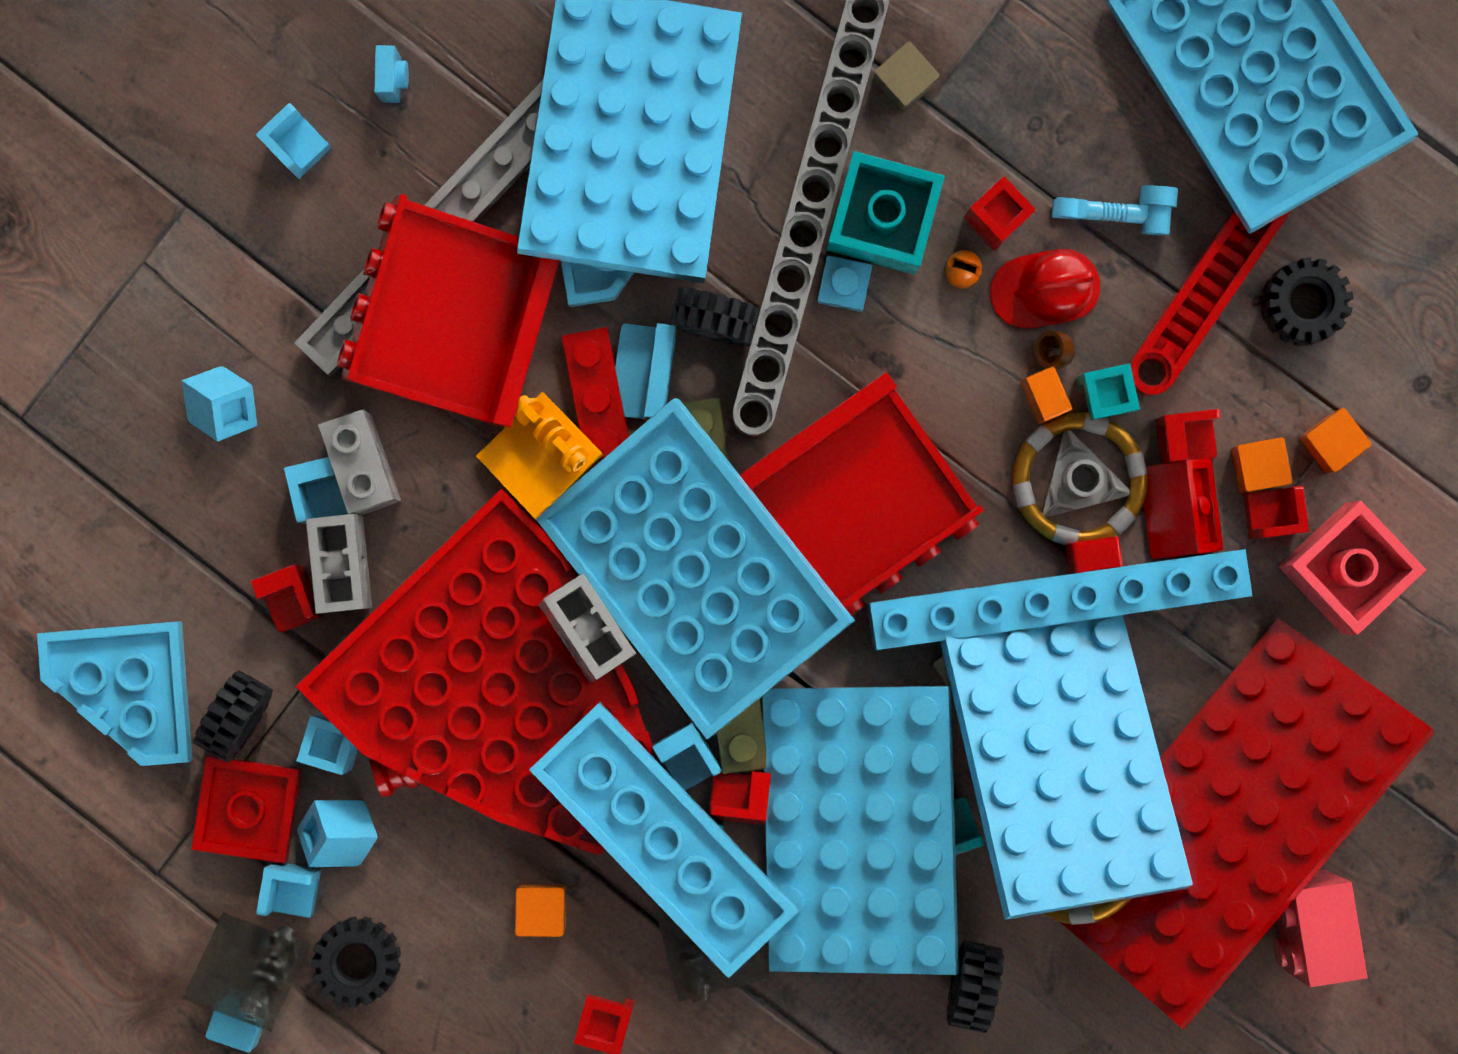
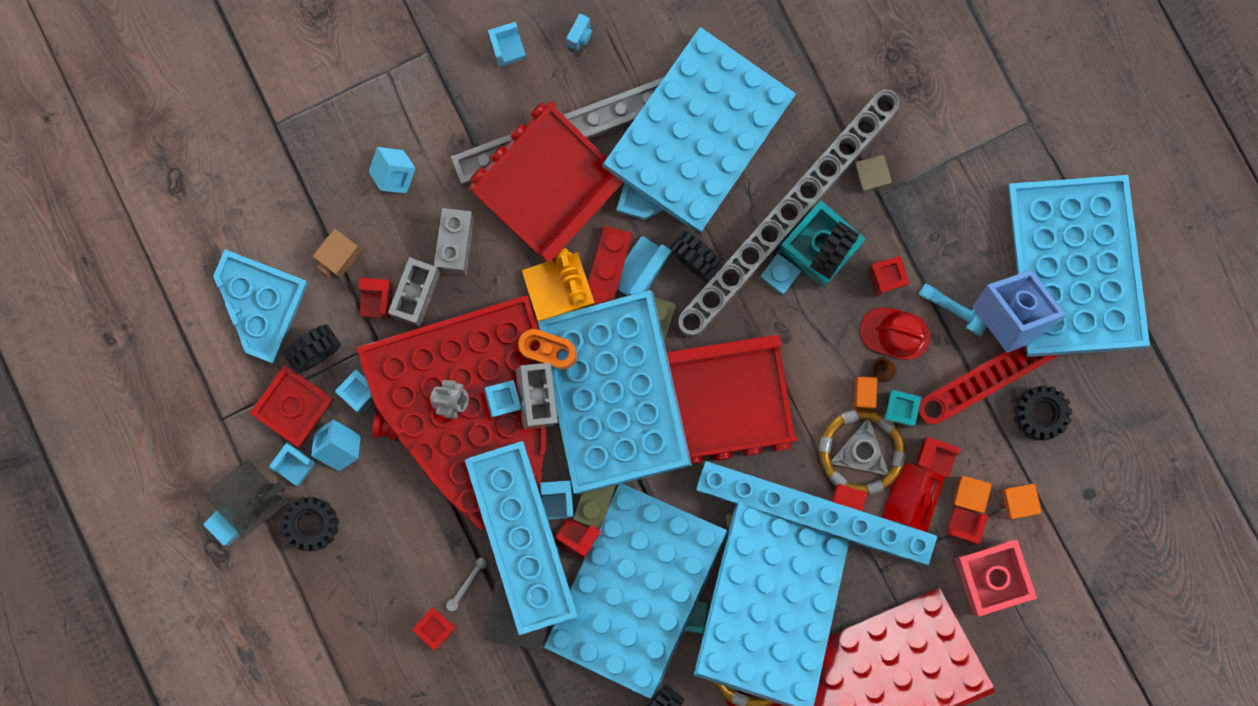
camera: 30 degrees right, 5 degrees down
(201, 563) = (336, 254): none -> medium nougat brick
(314, 490) = (421, 244): medium azure panel -> none
(465, 695) = (449, 399): none -> light grey gear
(540, 655) = (502, 399): none -> medium azure plate
(540, 910) = (429, 547): orange piece -> none
(571, 553) = (549, 349): none -> orange plate
(612, 972) = (452, 604): none -> light grey hinge
(911, 214) = (834, 250): none -> black tyre
(961, 278) = (848, 303): orange hinge -> none
(1209, 173) = (1018, 310): none -> medium blue slope

